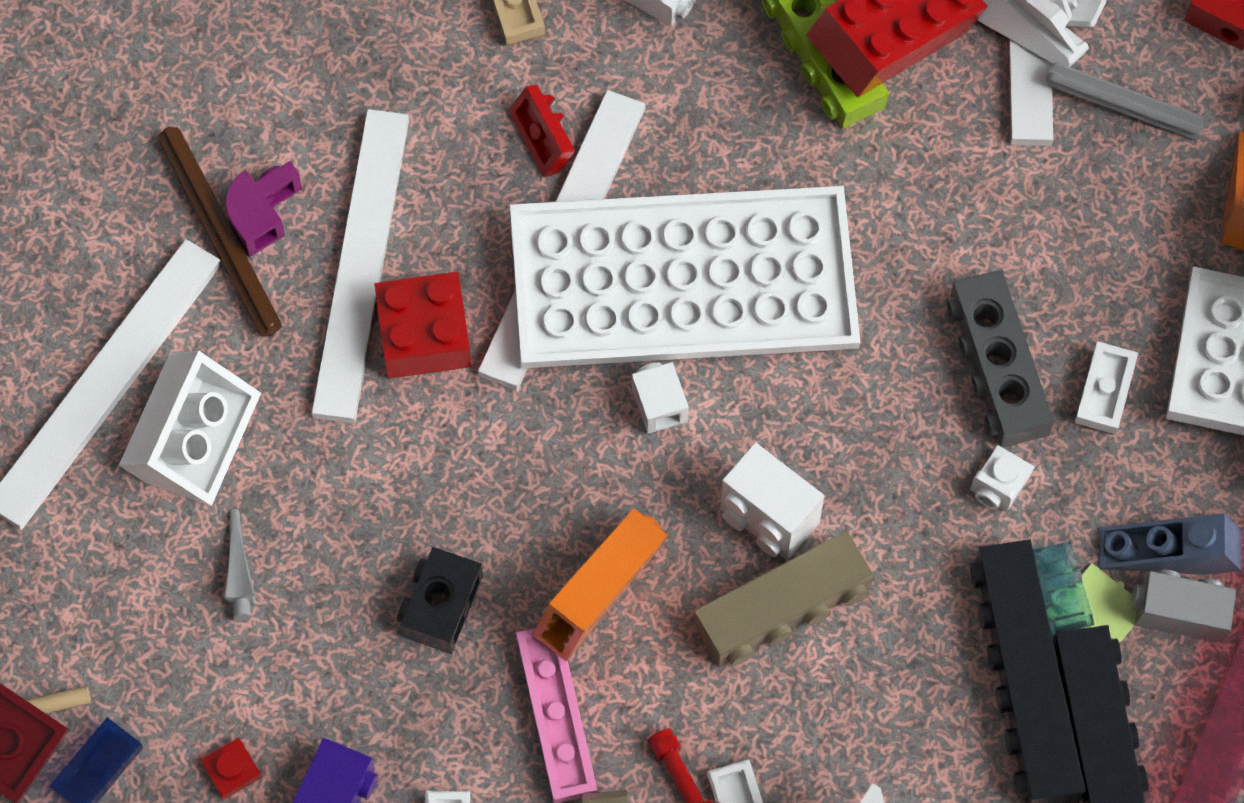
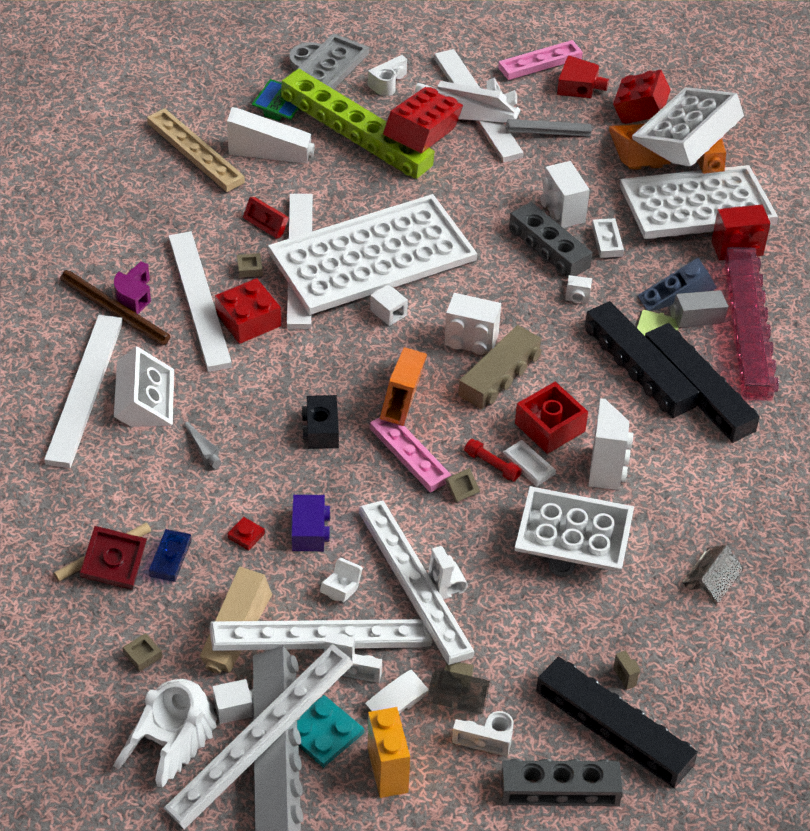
camera: 25 degrees left, 20 degrees down
(471, 223) = (249, 265): none -> dark tan plate
(812, 742) = (551, 417): none -> red brick
(1062, 588) = (637, 318): clear light blue slope -> none
(1067, 276) = (565, 194): none -> white brick

